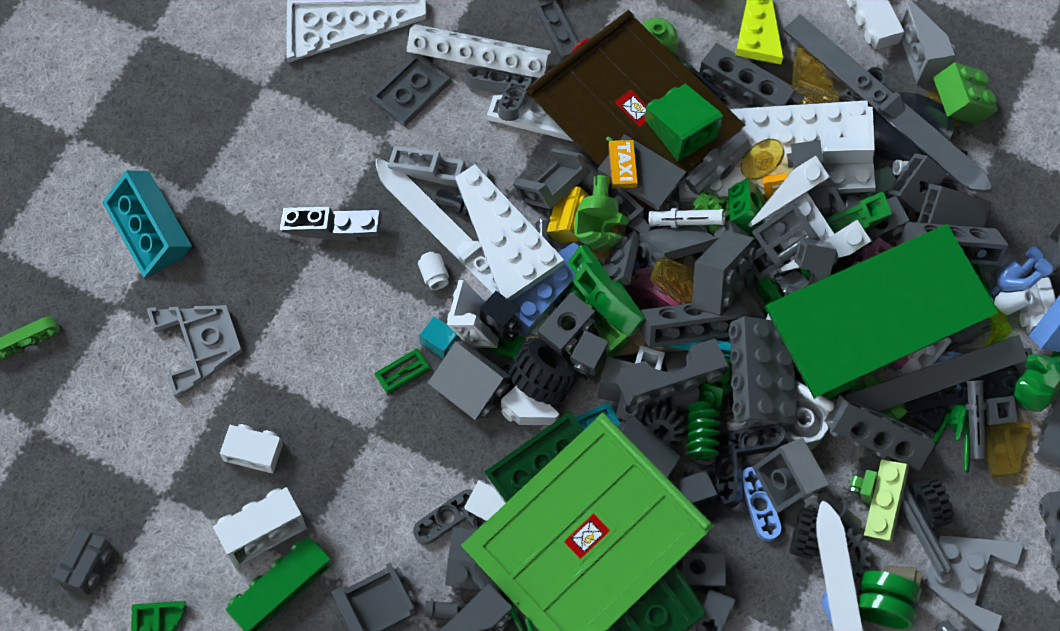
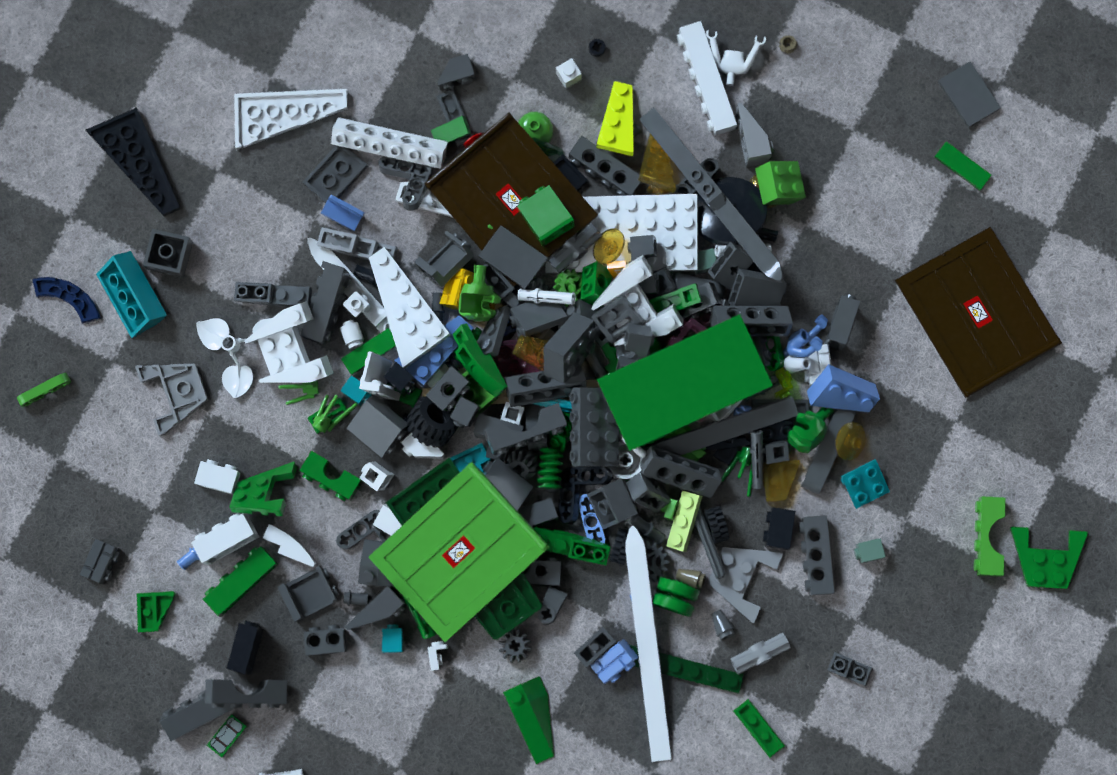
camera: 10 degrees right, 15 degrees up
(65, 223) = (70, 293): none -> dark blue tile
(160, 65) = (131, 148): none -> black wing
(197, 173) = (168, 253): none -> dark grey brick
(208, 556) = (188, 558): none -> medium blue pin
(253, 269) = (214, 335): none -> white plant
(308, 463) = (255, 492): none -> green wing
(345, 282) = (285, 350): none -> white wedge
(348, 538) = (288, 546): none -> white slope
(377, 334) = (308, 387): none -> bright green plant
(395, 375) = (321, 420): none -> bright green plant
(400, 230) = (326, 303): none -> dark grey wedge
(421, 127) = (342, 212): none -> medium blue panel
(423, 459) = (315, 469): none -> green arch
(441, 299) = (379, 344): none -> green tile
(442, 231) = (357, 304): none -> white bracket
(476, 449) = (369, 478): none -> white brick
(557, 38) = (452, 130): none -> green tile
(623, 164) = (497, 252): light orange tile -> none
(748, 536) = (575, 546): none -> green slope
(837, 460) = (648, 492): none -> dark grey brick
(856, 146) = (683, 236): white panel -> none
(1015, 510) = (779, 528): none -> black brick

